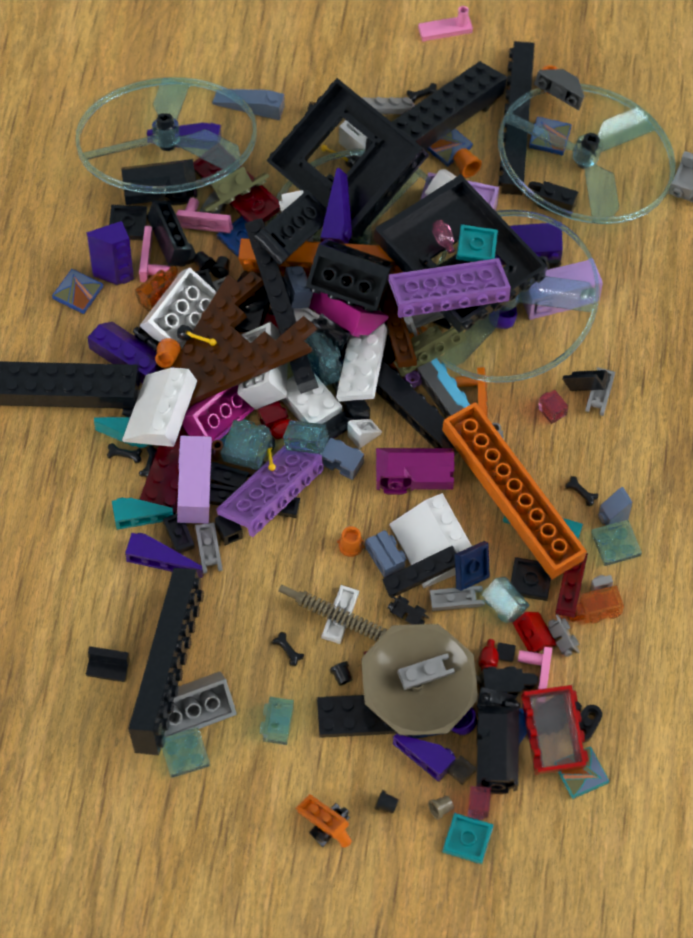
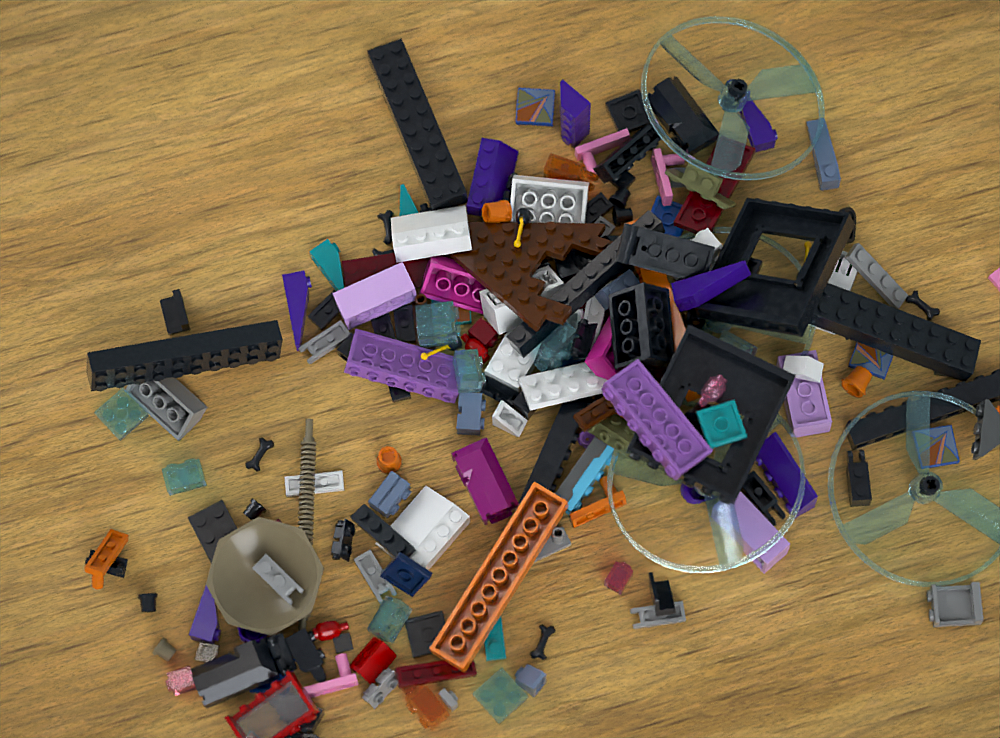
camera: 70 degrees right, 10 degrees up
(468, 838) = (147, 686): teal tile -> none

